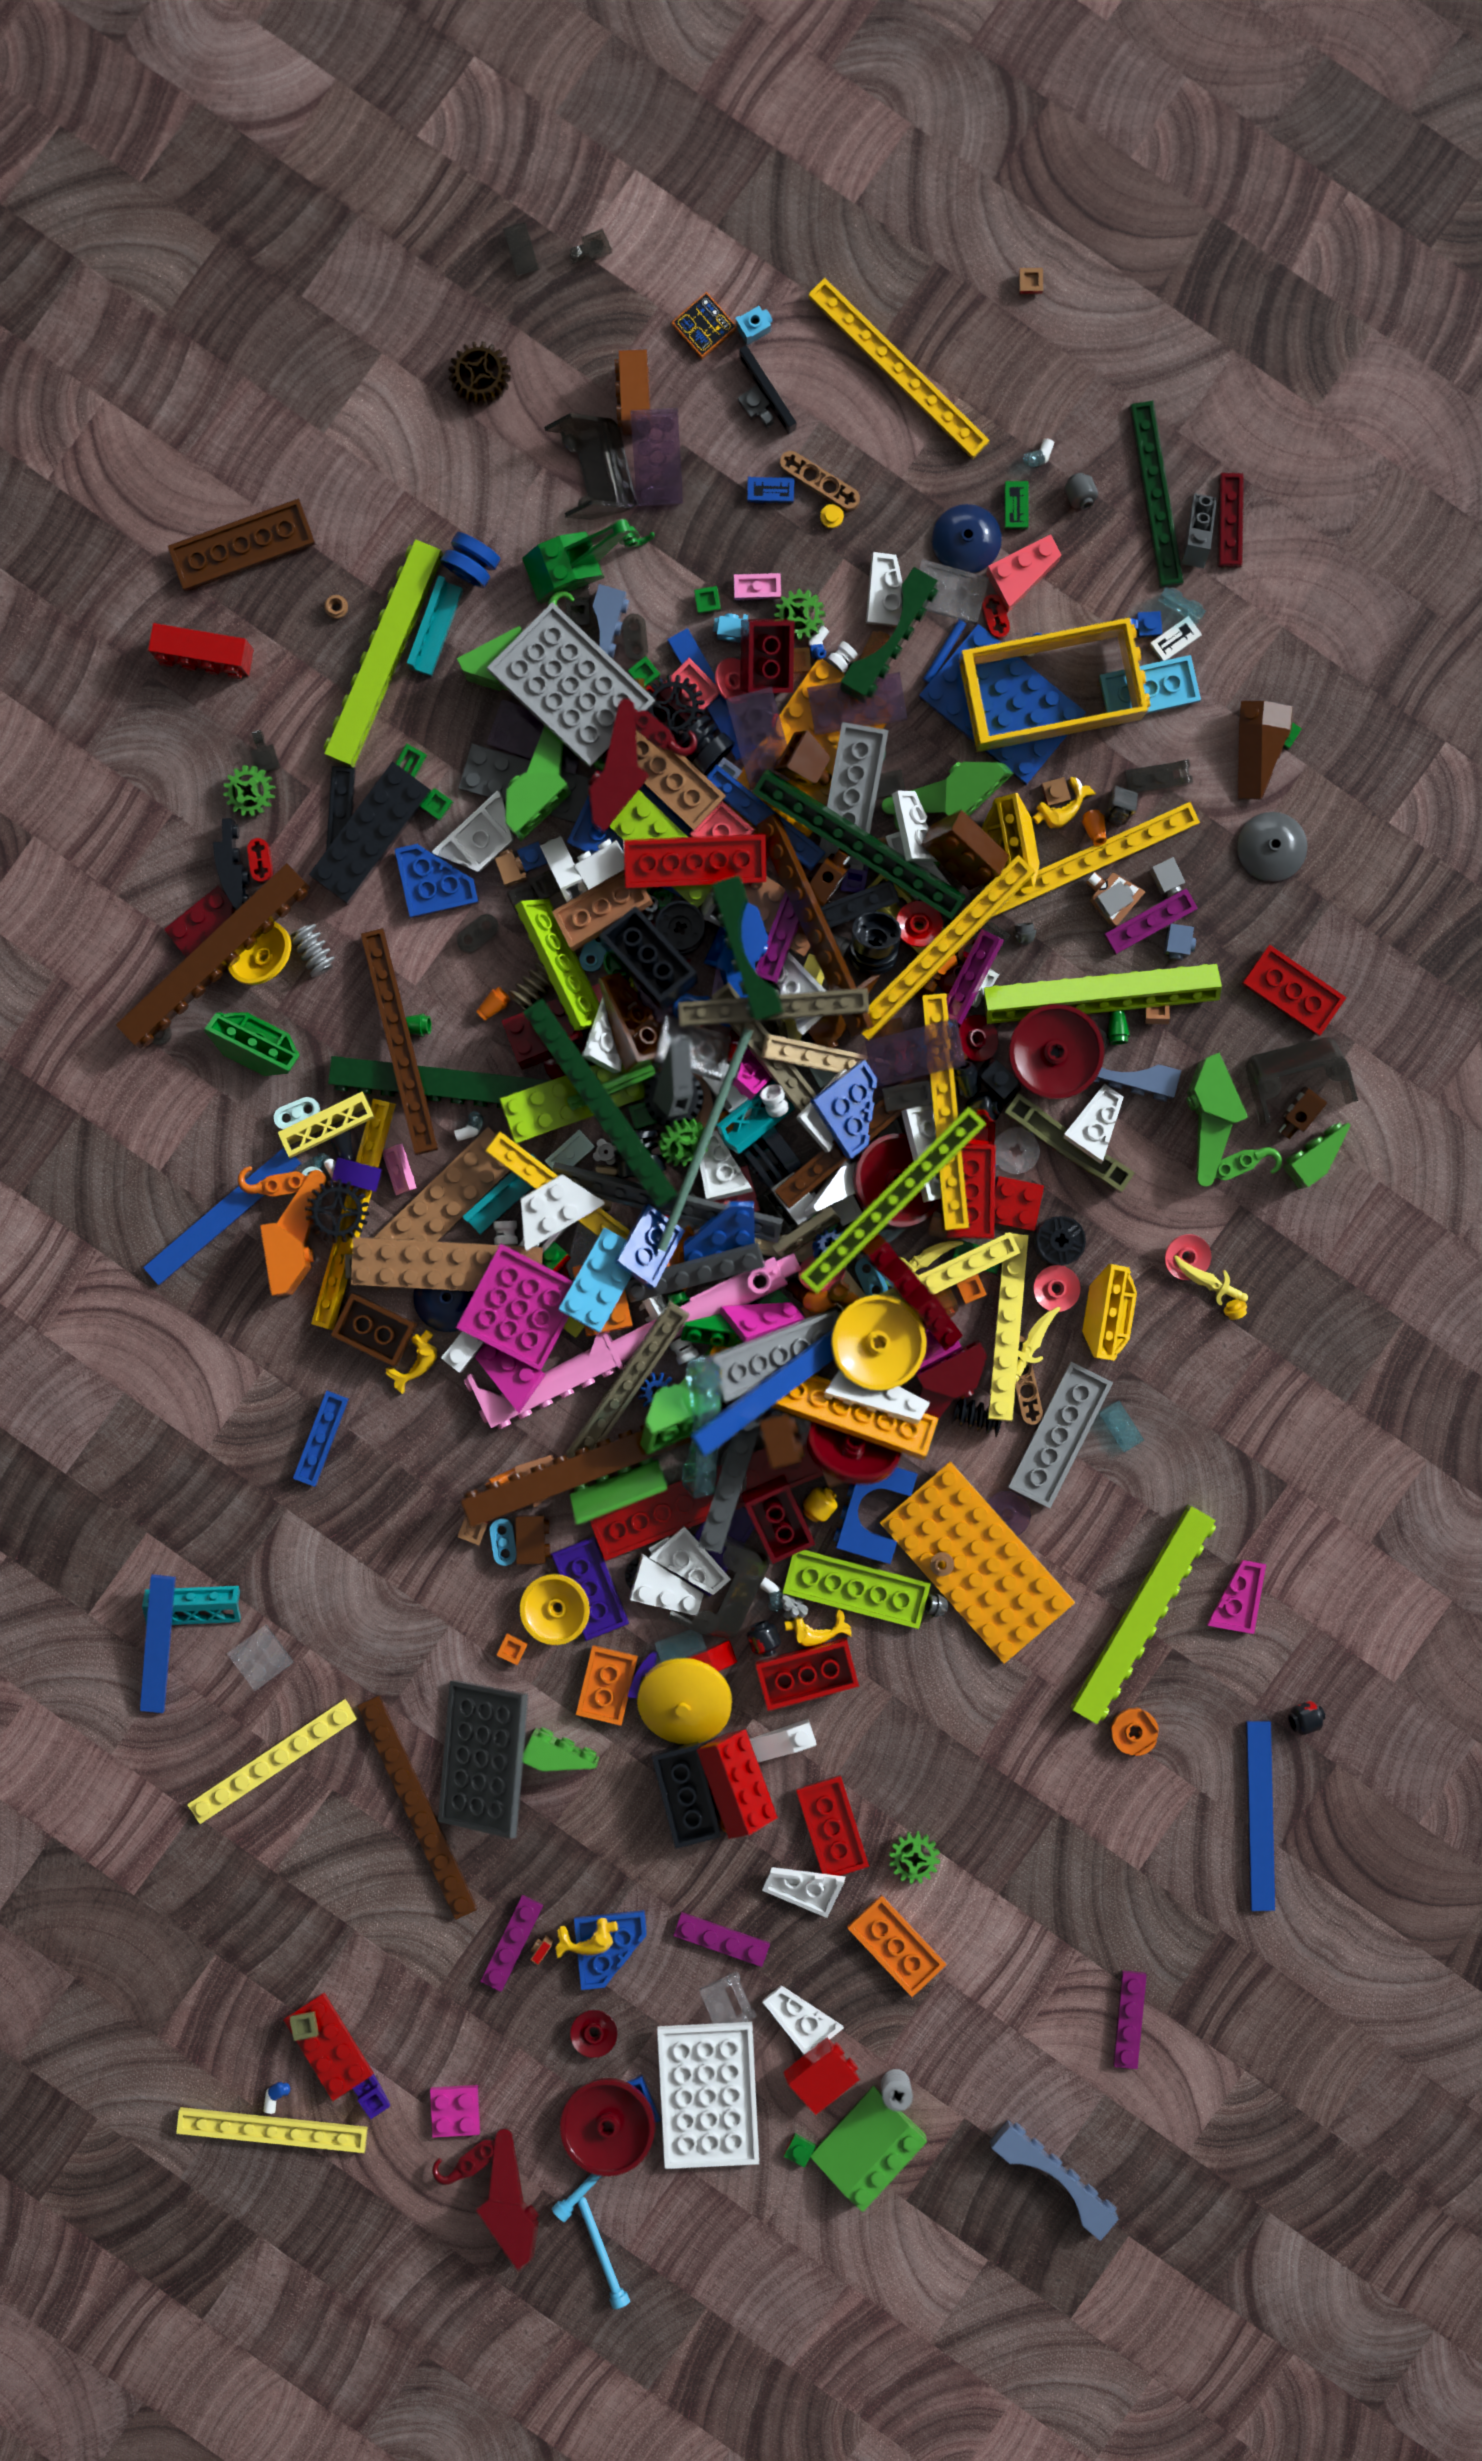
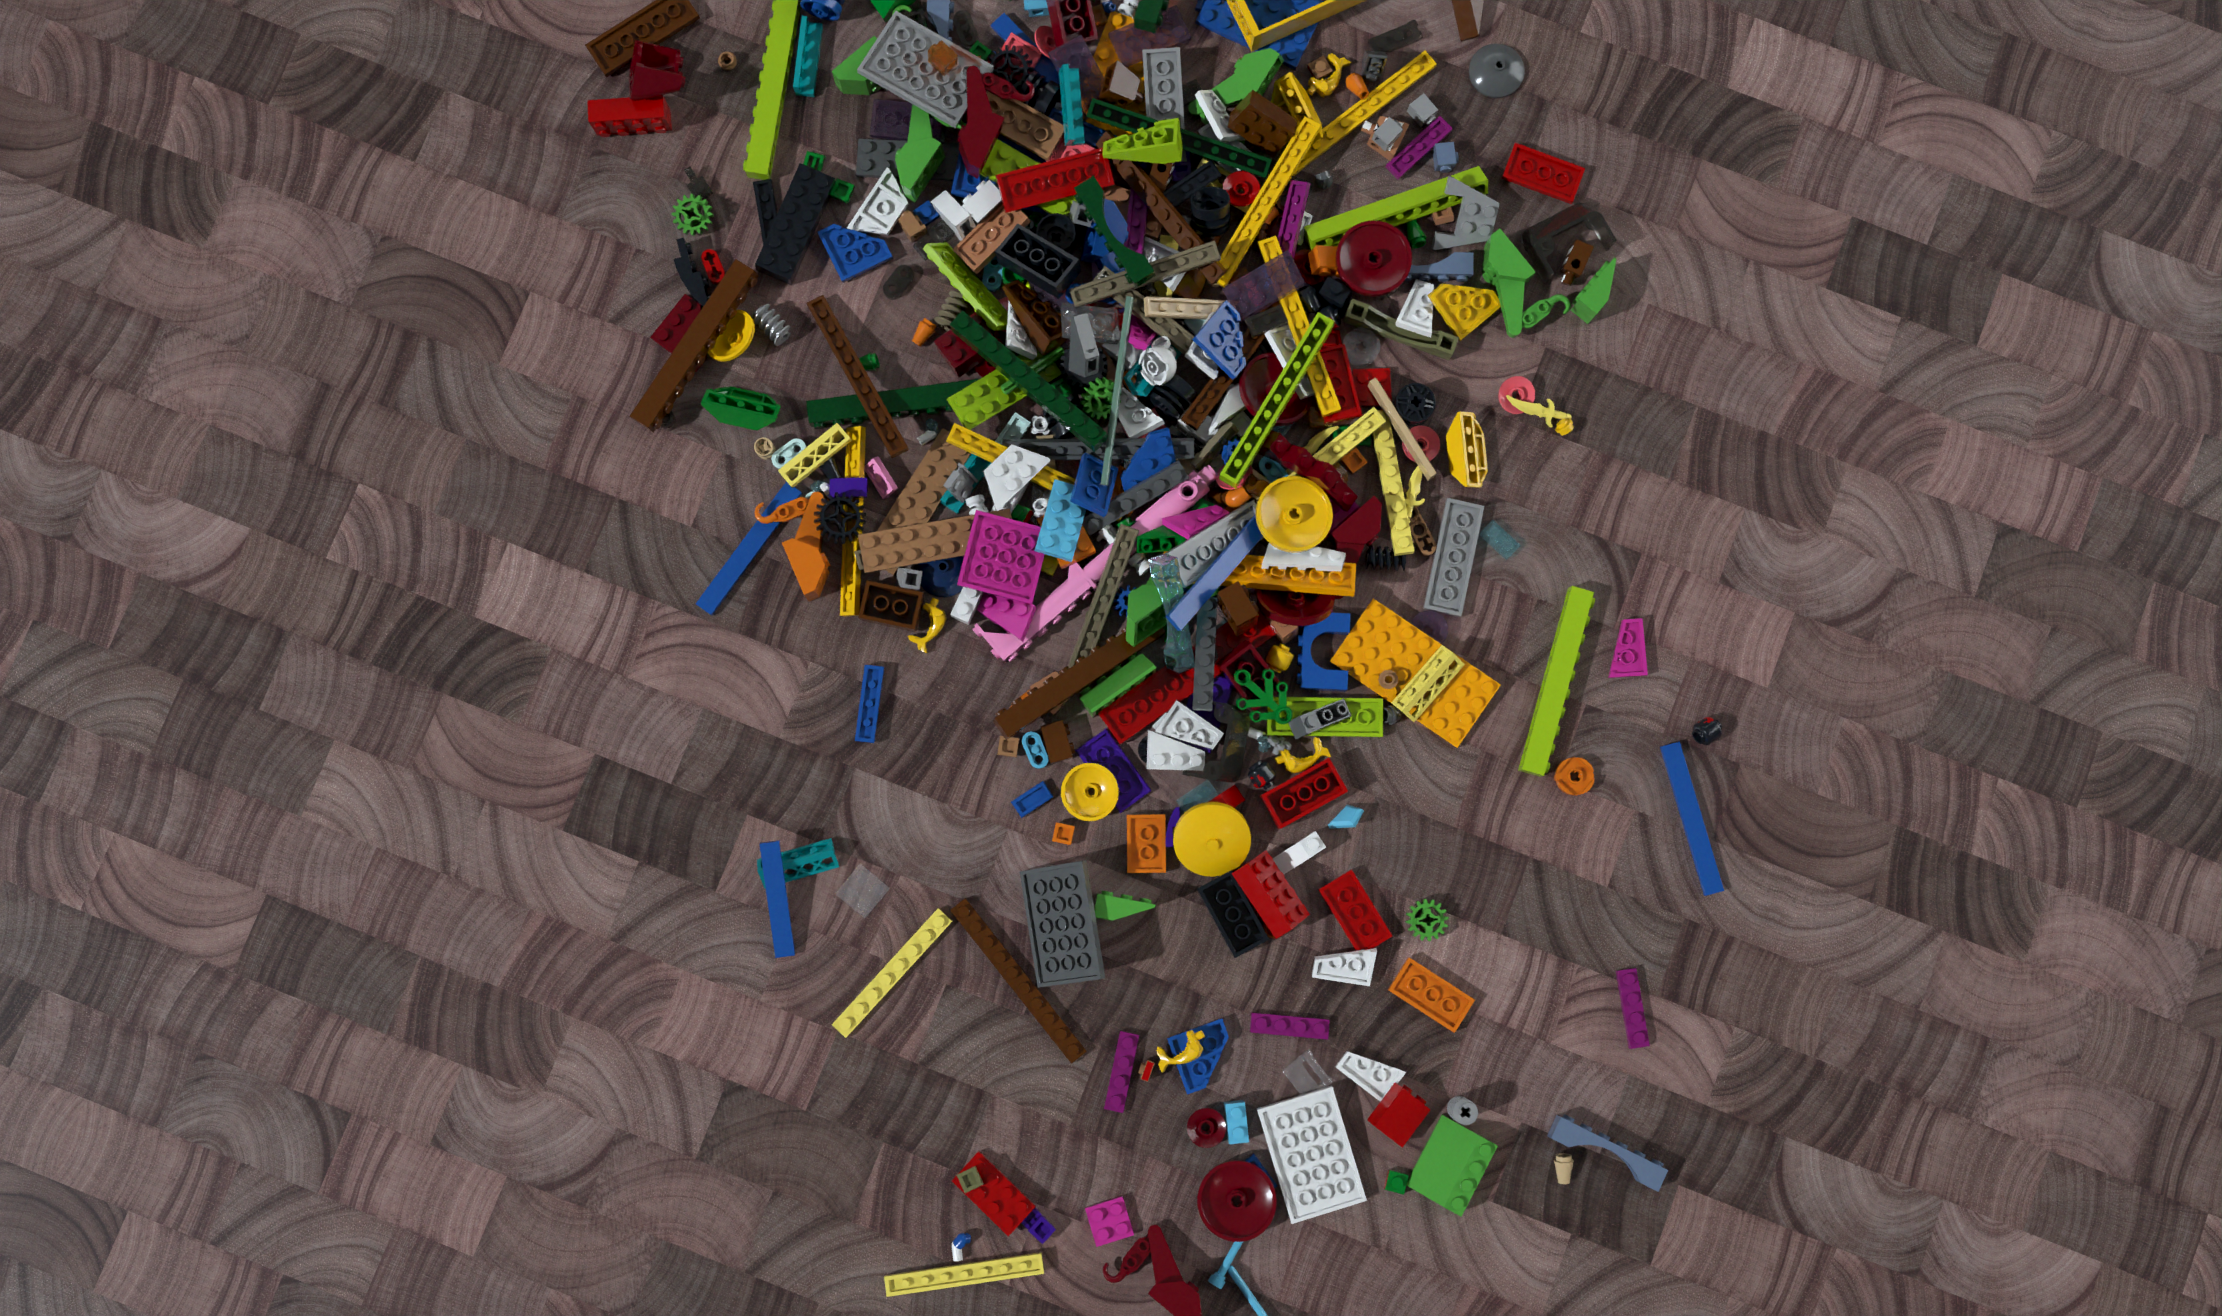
camera: 20 degrees left, 5 degrees down
(243, 604) = (654, 71): none -> dark red windscreen
(265, 1097) = (763, 445): none -> tan wheel
(402, 1302) = (908, 578): none -> light grey brick
(486, 1598) = (1032, 799): none -> blue tile
(491, 1203) = (960, 483): none -> light grey plate
(577, 1251) = (1040, 507): none -> white plate
(593, 678) = (942, 57): none -> clear orange brick
(630, 2036) = (1236, 1122): none -> medium azure brick
(738, 773) = (1071, 106): none -> teal fence
(761, 1122) = (1157, 365): none -> white cylinder
(788, 1552) = (1266, 698): none -> green plant
(824, 848) = (1153, 145): none -> lime wedge
(848, 1590) = (1319, 718): none -> dark grey slope
(851, 1714) = (1347, 817): none -> medium azure piece
(985, 1578) = (1426, 681): none -> light yellow fence
(996, 1036) = (1323, 260): none -> orange brick
(999, 2182) = (1563, 1166): none -> tan cone
(1037, 1267) = (1402, 429): none -> tan tile
(1153, 1133) = (1464, 306): none -> yellow plate
(1194, 1029) = (1475, 217): none -> light grey wing

